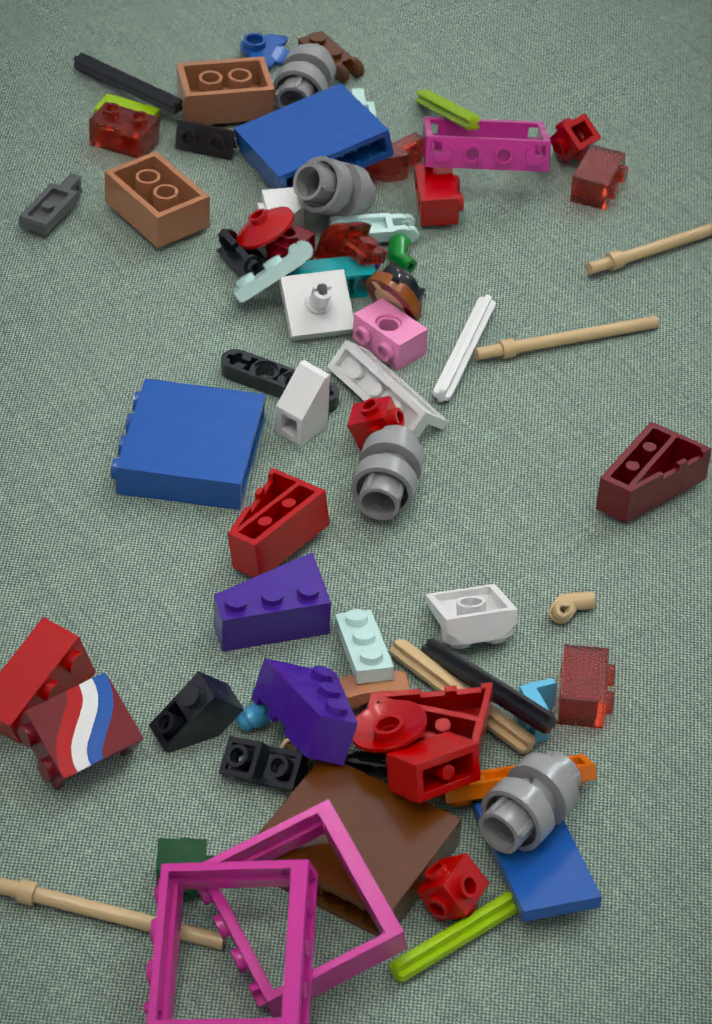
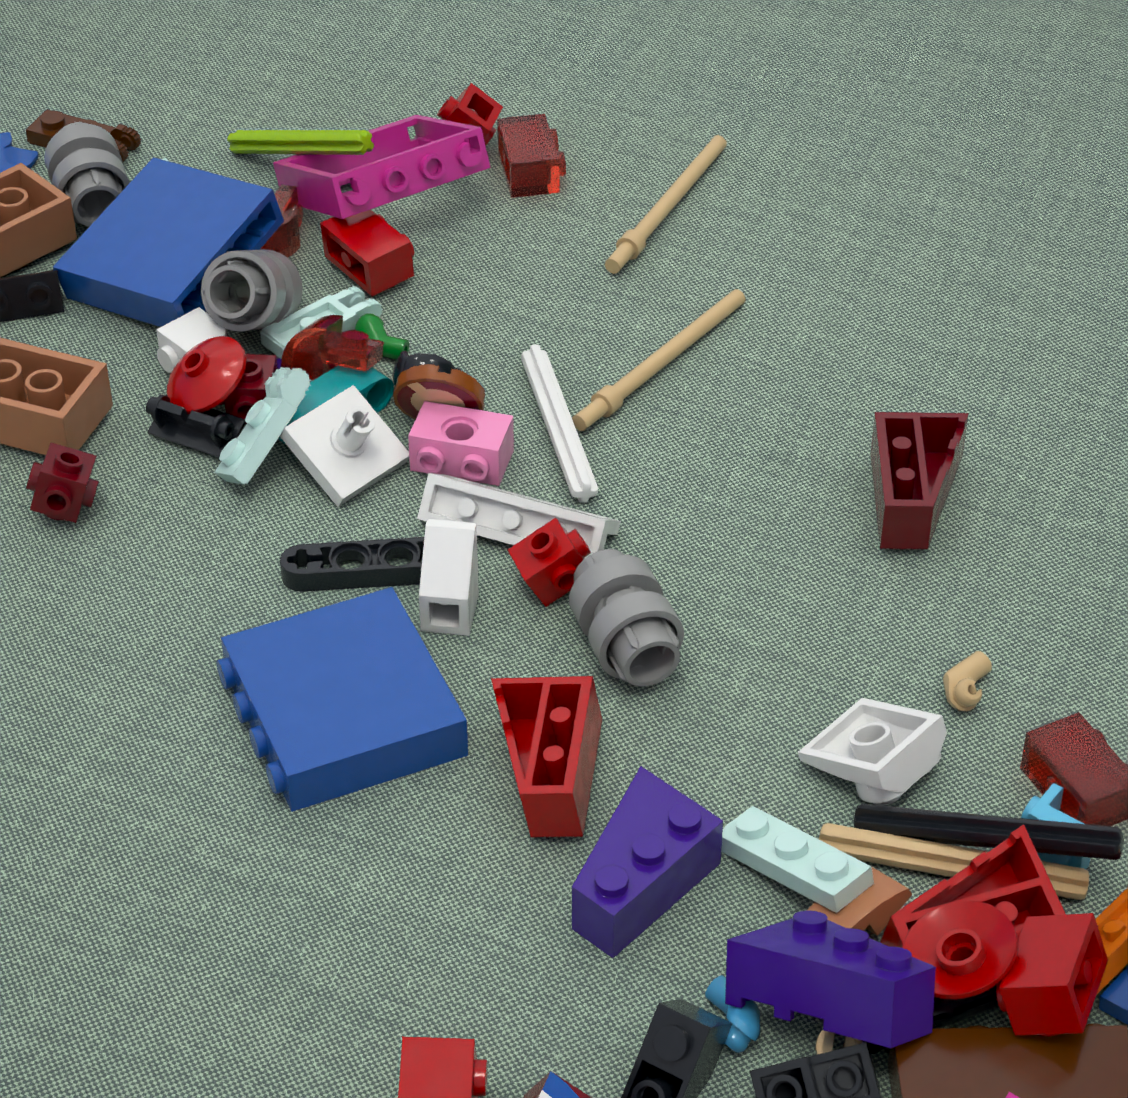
camera: 30 degrees left, 0 degrees up
(136, 256) = (62, 483): none -> dark red brick

